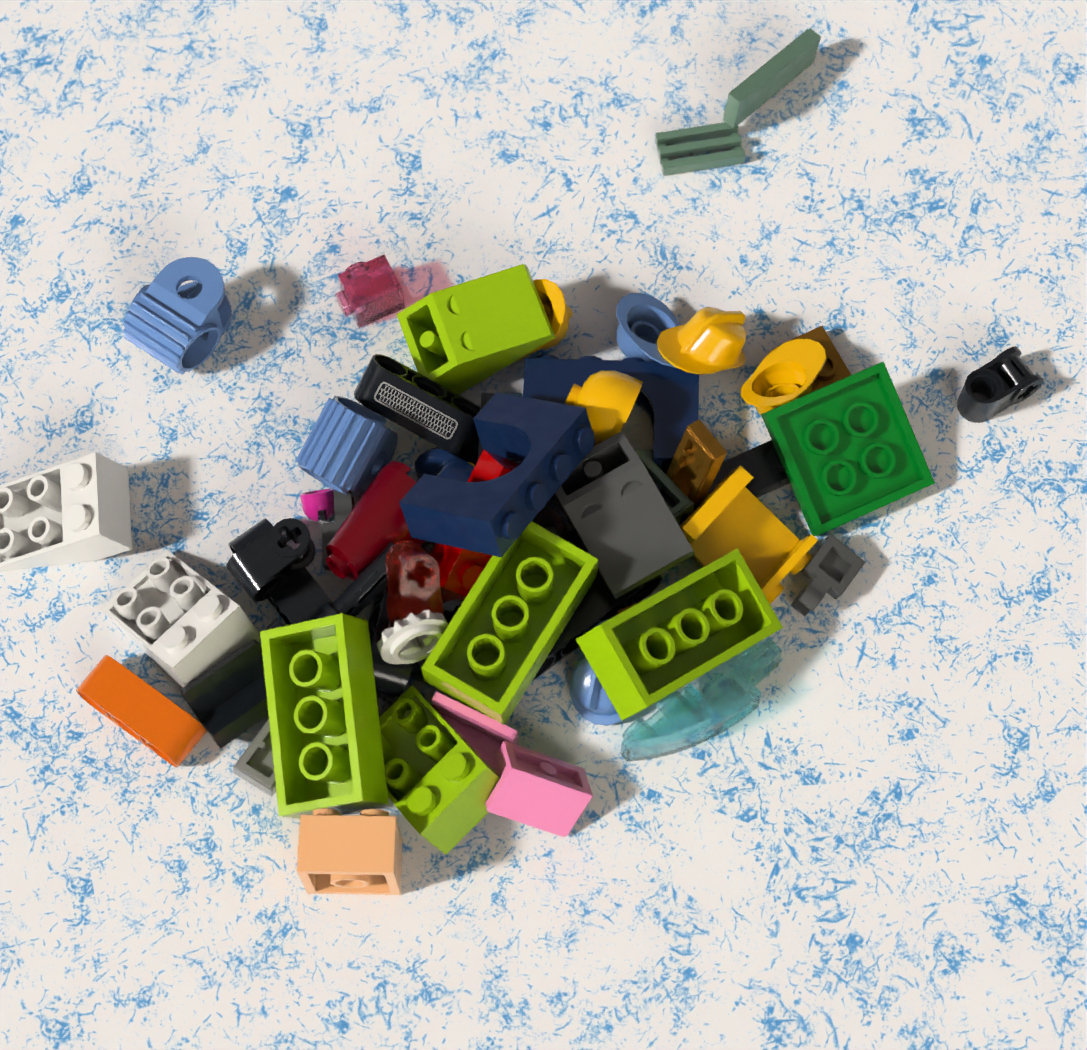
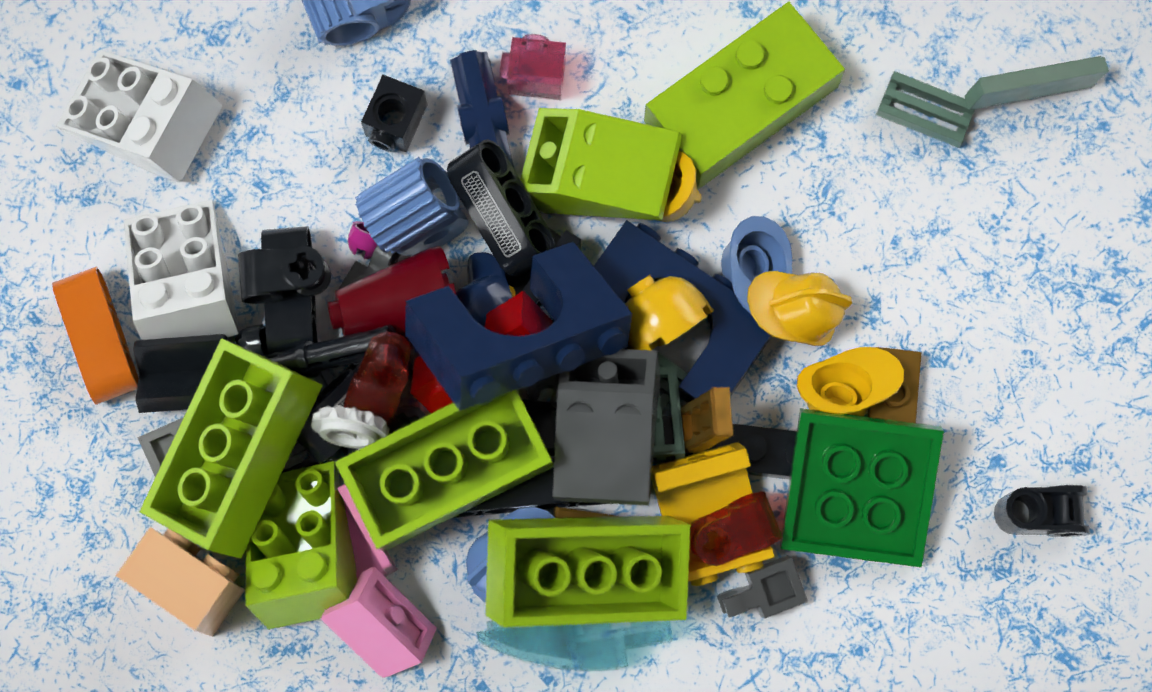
camera: 30 degrees right, 10 degrees up
(275, 376) = (393, 96): none -> black brick
(344, 347) = (480, 108): none -> dark blue piece
(554, 207) = (747, 92): none -> lime brick
(774, 536) = (741, 527): none -> clear red piece

